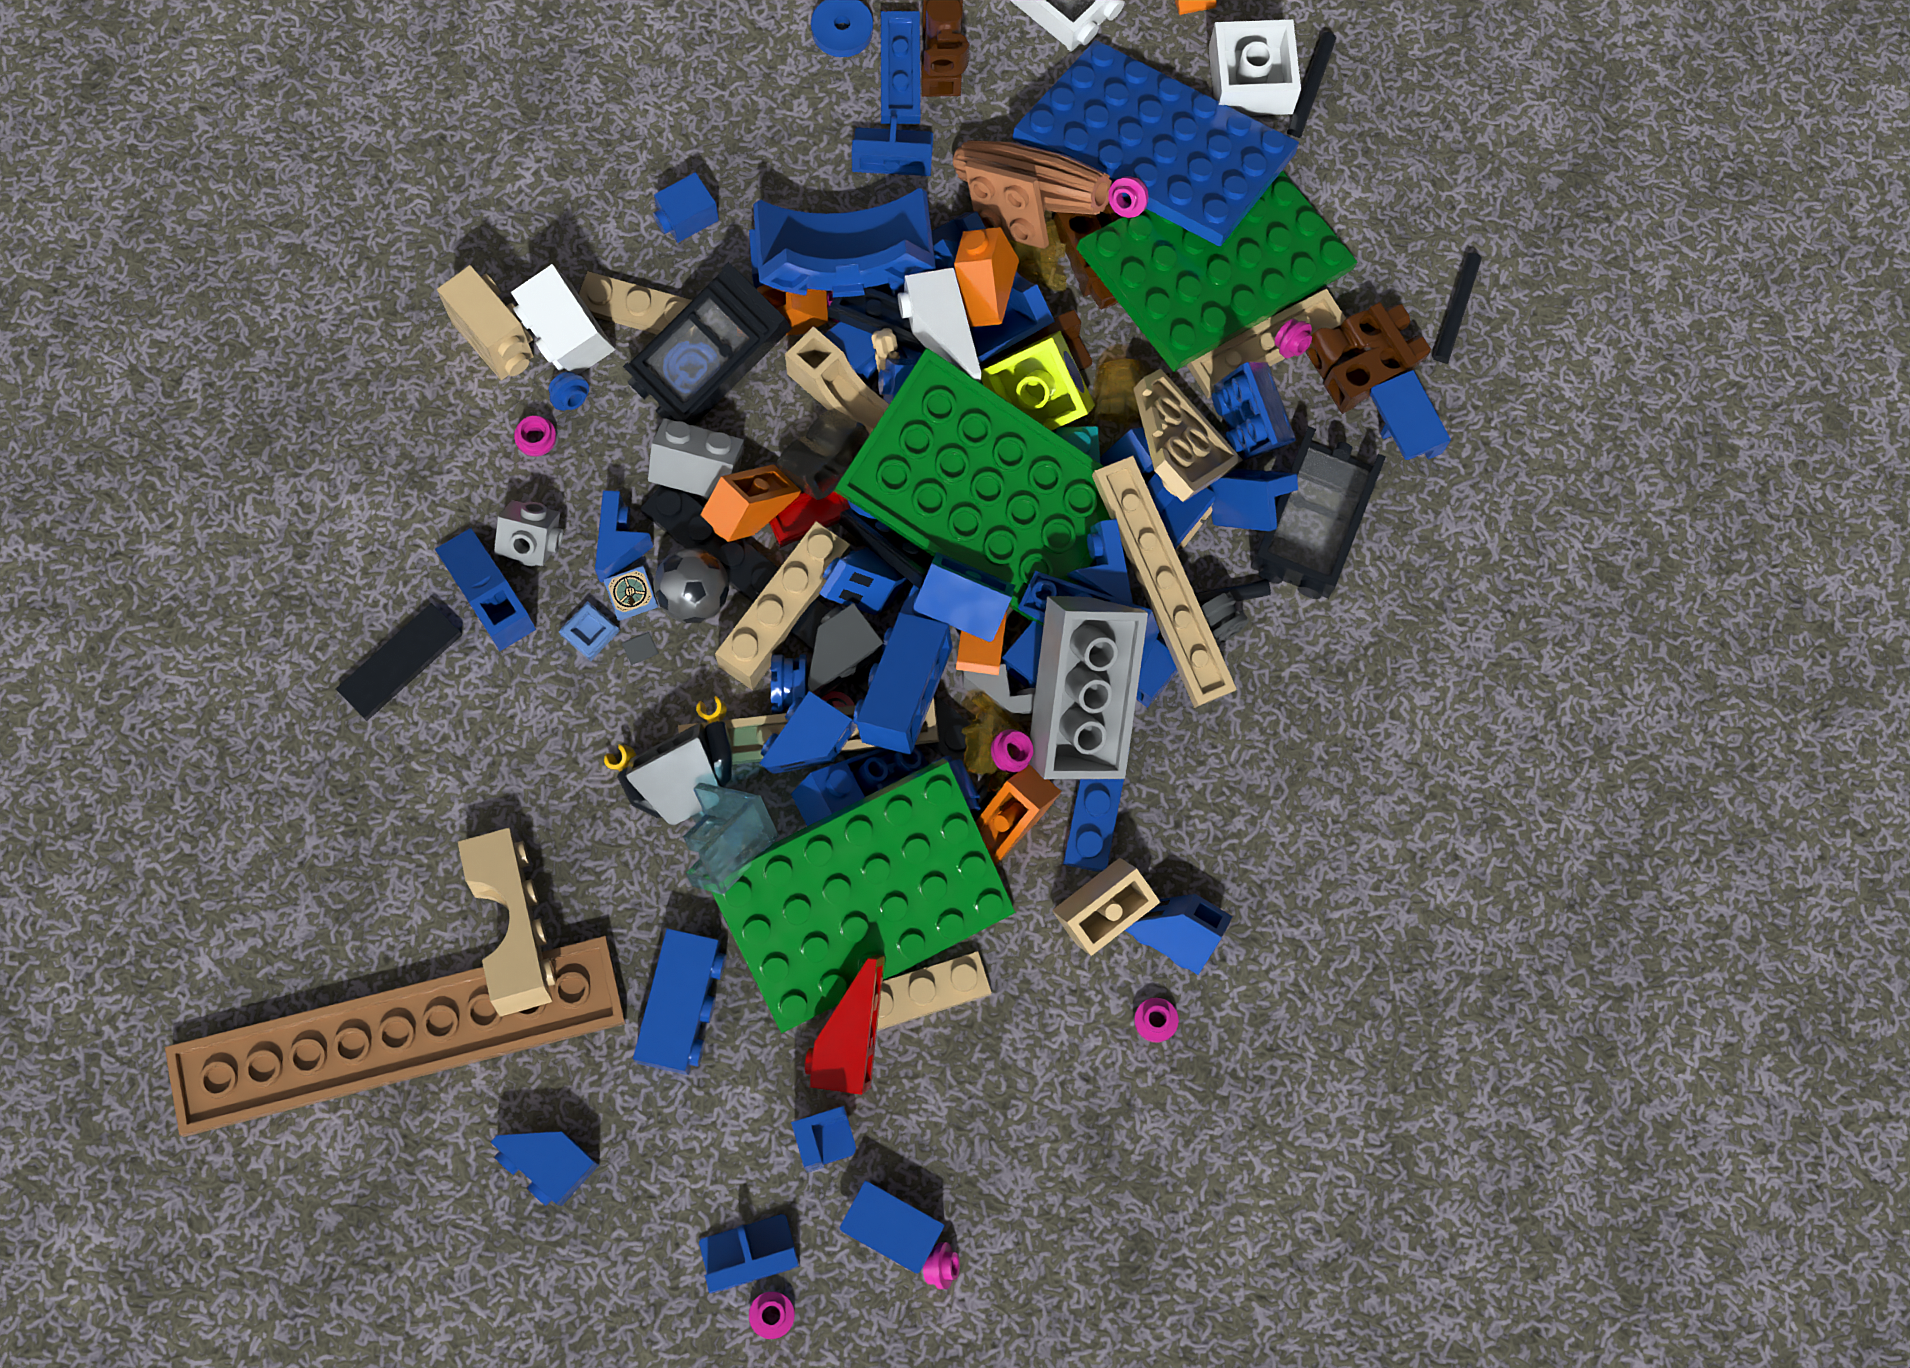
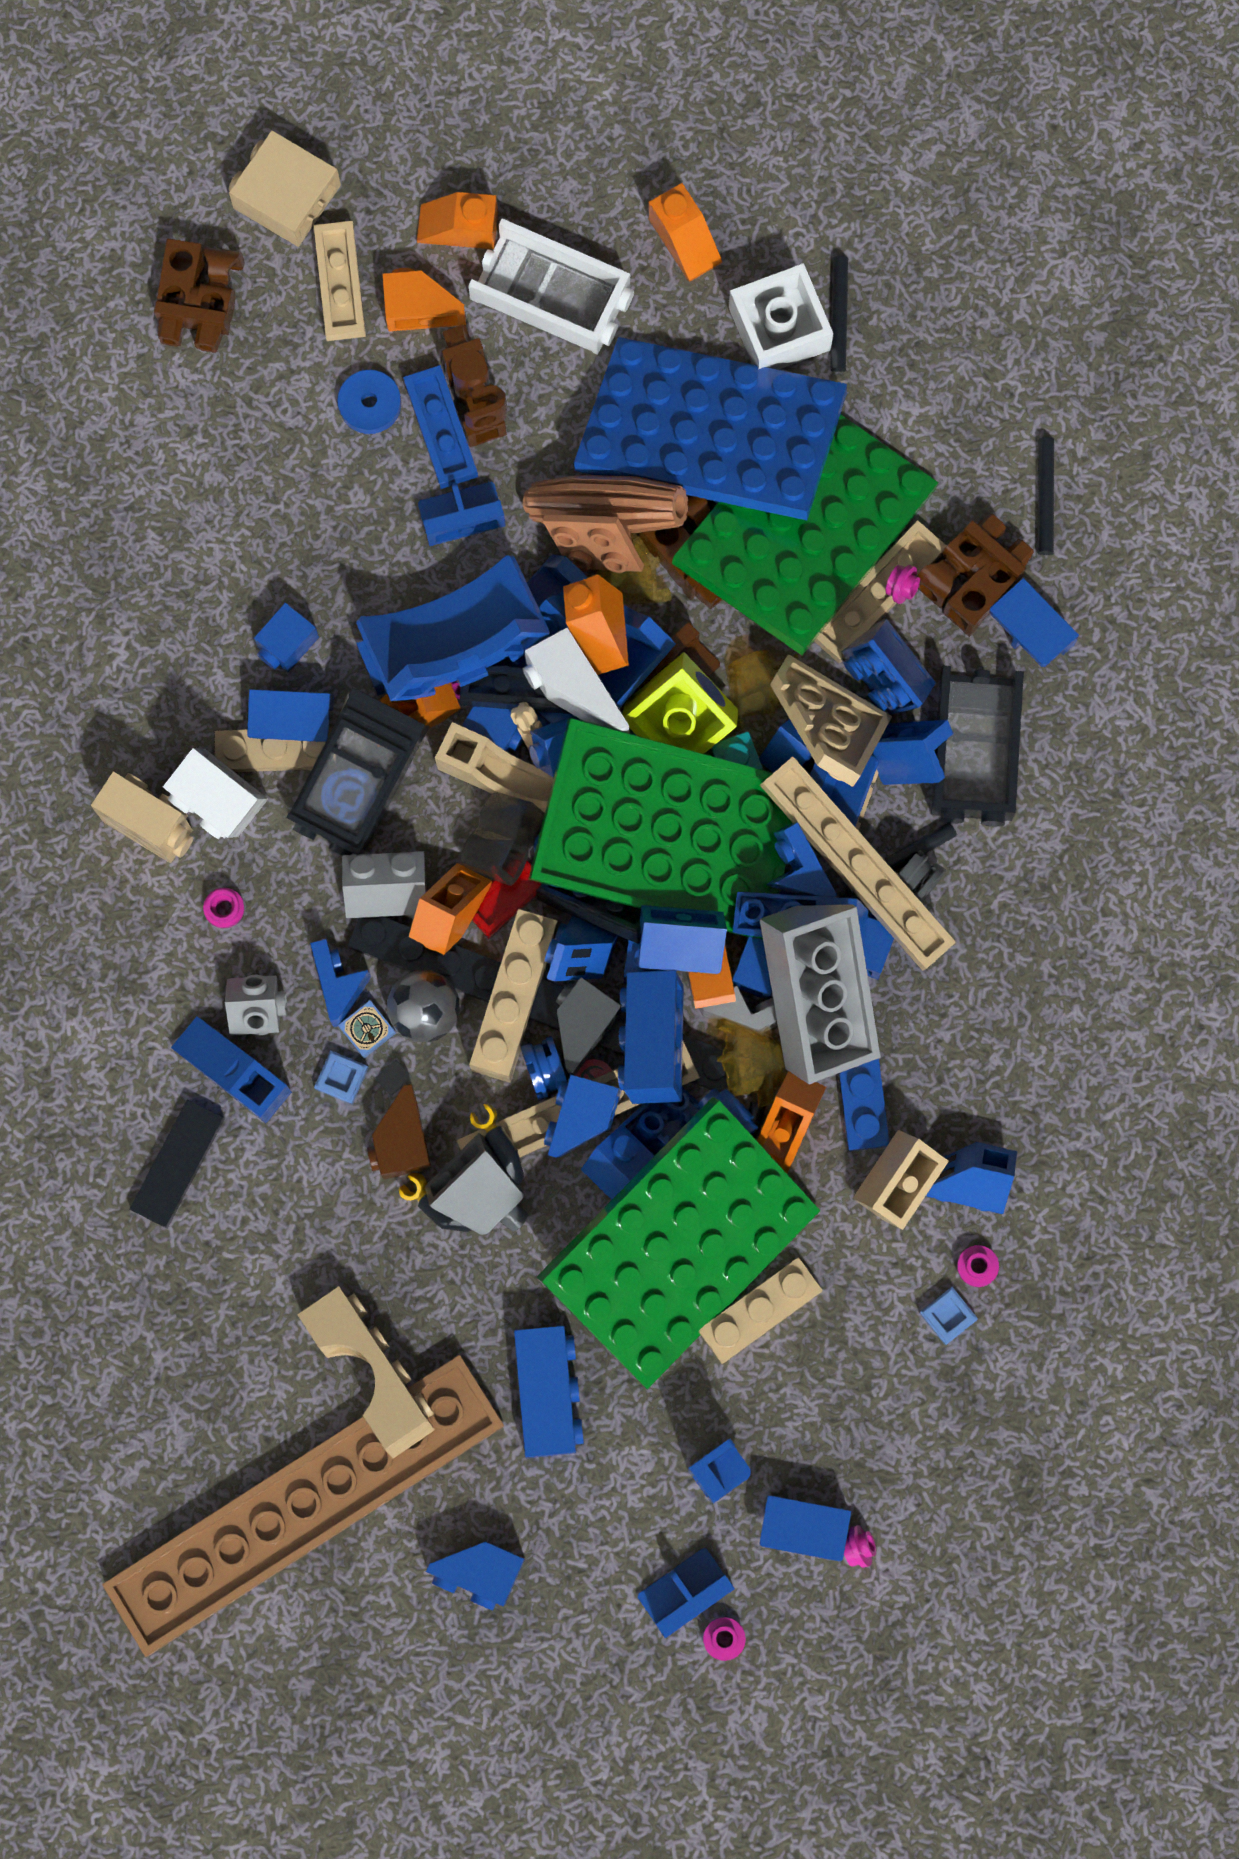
camera: 10 degrees left, 5 degrees up
(568, 391) = (240, 855): blue plate -> none
(623, 706) = (400, 1139): none -> reddish brown slope
(661, 275) = (289, 715): none -> blue panel
(727, 836) = (548, 1228): clear light blue panel -> none
(847, 1043) = (711, 1384): red slope -> none
(1020, 746) = (779, 1064): dark pink plate -> none
(1110, 1060) = (948, 1316): none -> medium blue tile
(1135, 189) = (707, 490): dark pink plate -> none

